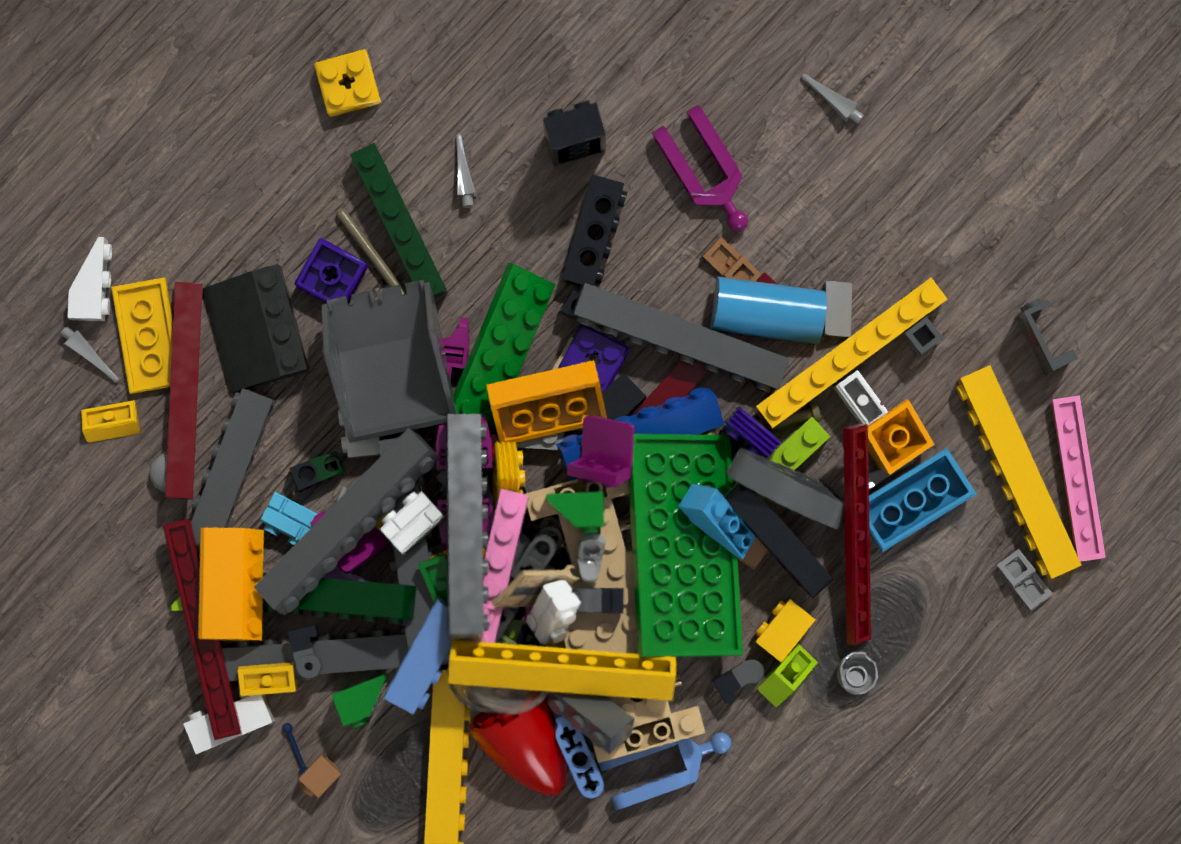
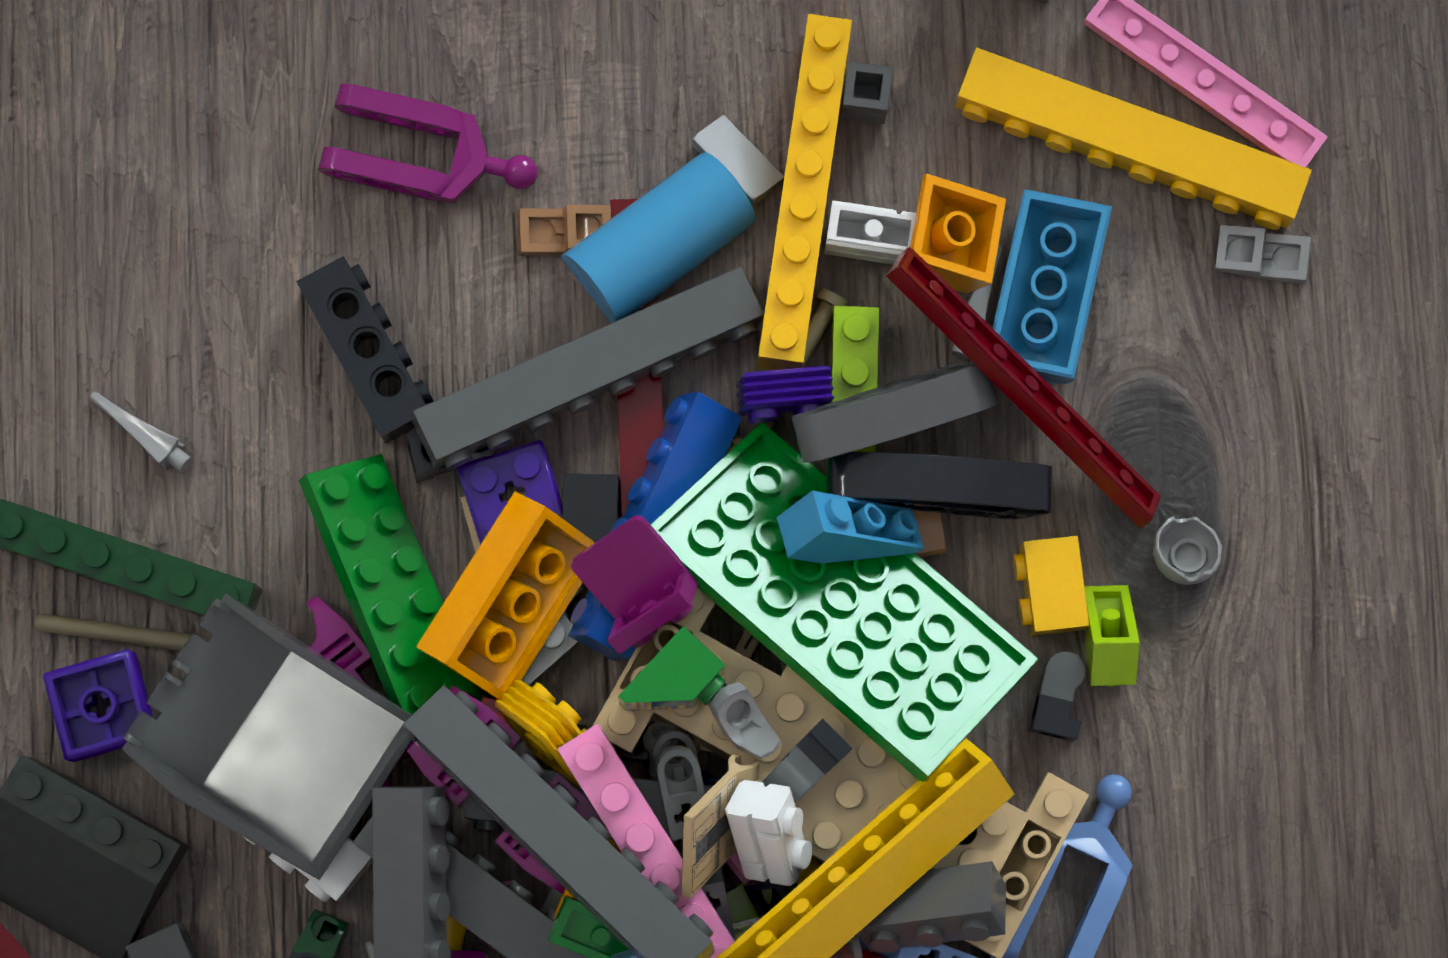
camera: 50 degrees left, 5 degrees down
(411, 522) = (490, 897): white brick -> none
(574, 133) = (225, 249): black brick -> none

